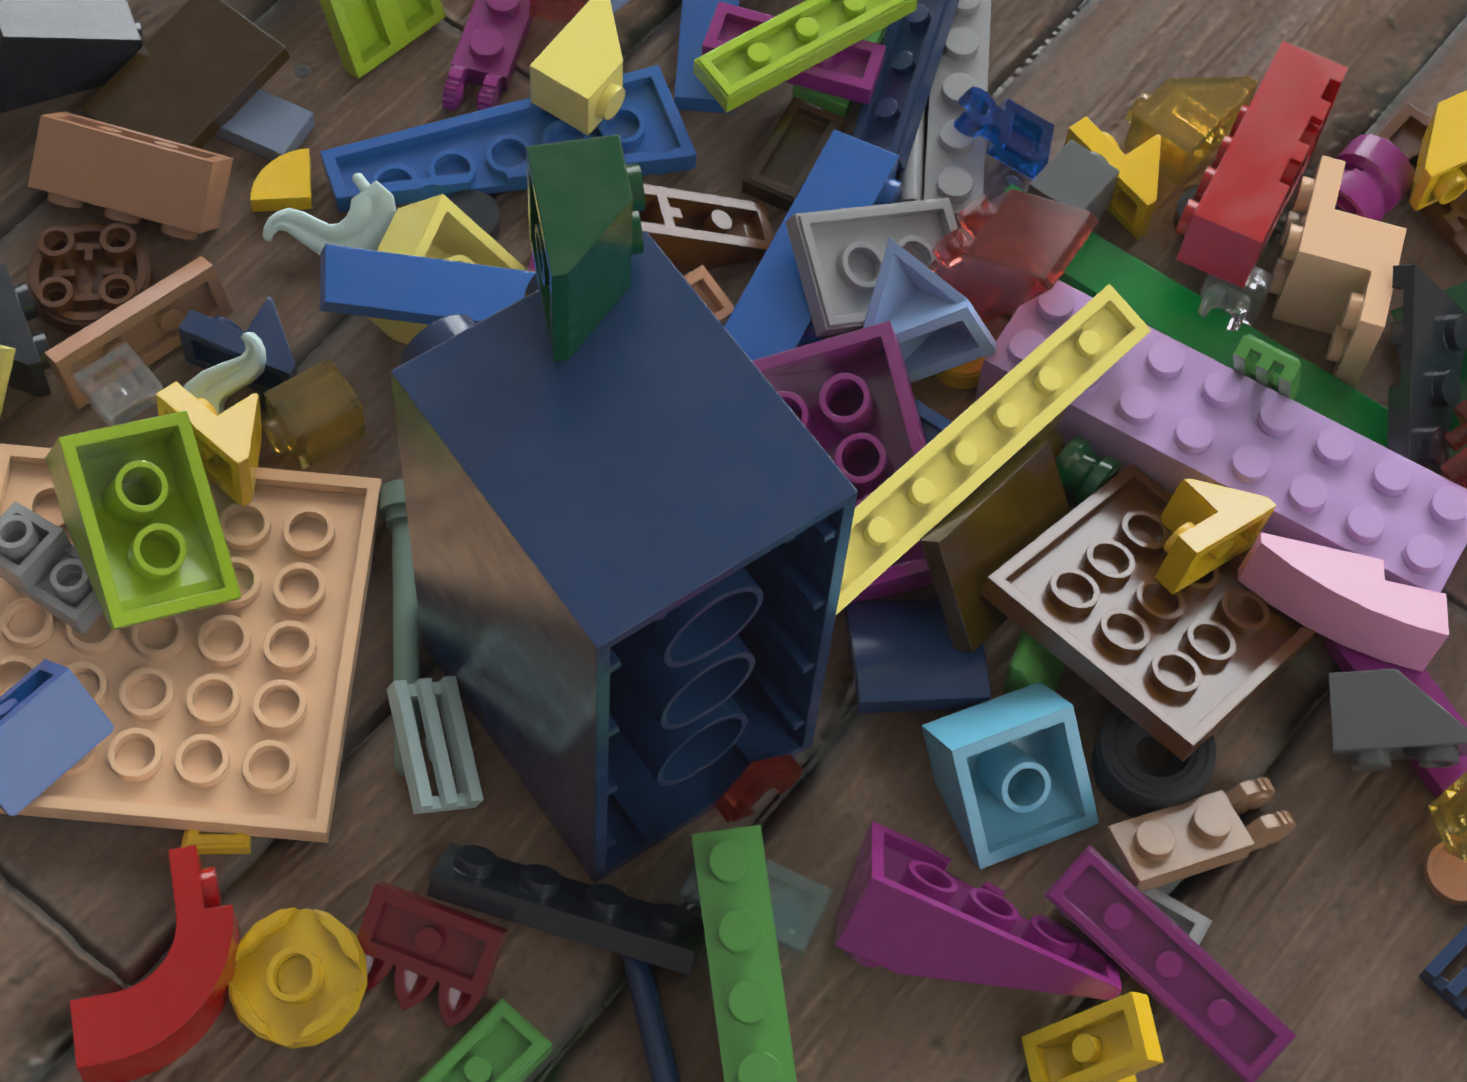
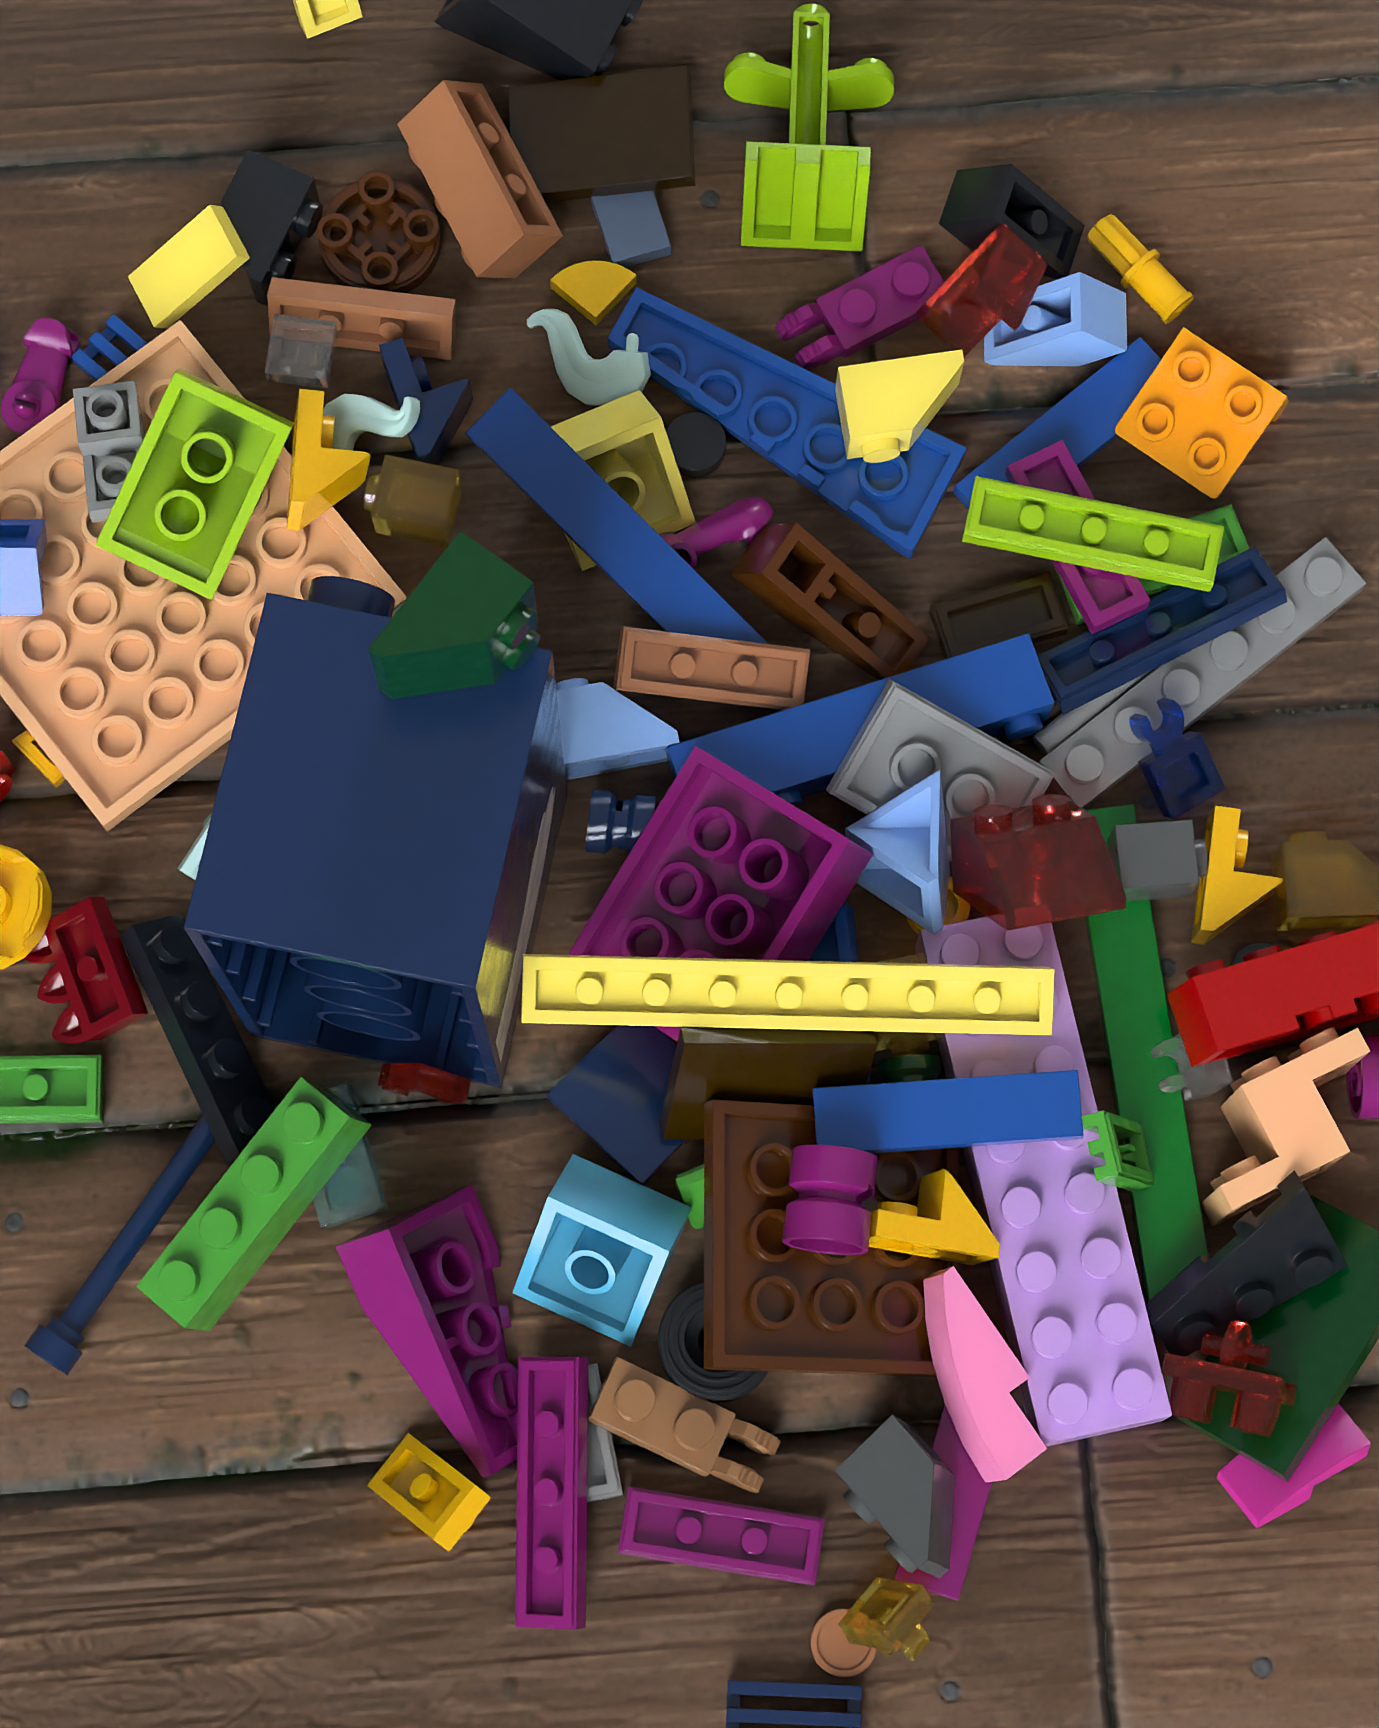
camera: 50 degrees right, 15 degrees up
(1140, 446) = (950, 1112): none -> blue tile
(1148, 571) = (830, 1199): none -> magenta wheel
(1302, 885) = (721, 1536): none -> magenta tile

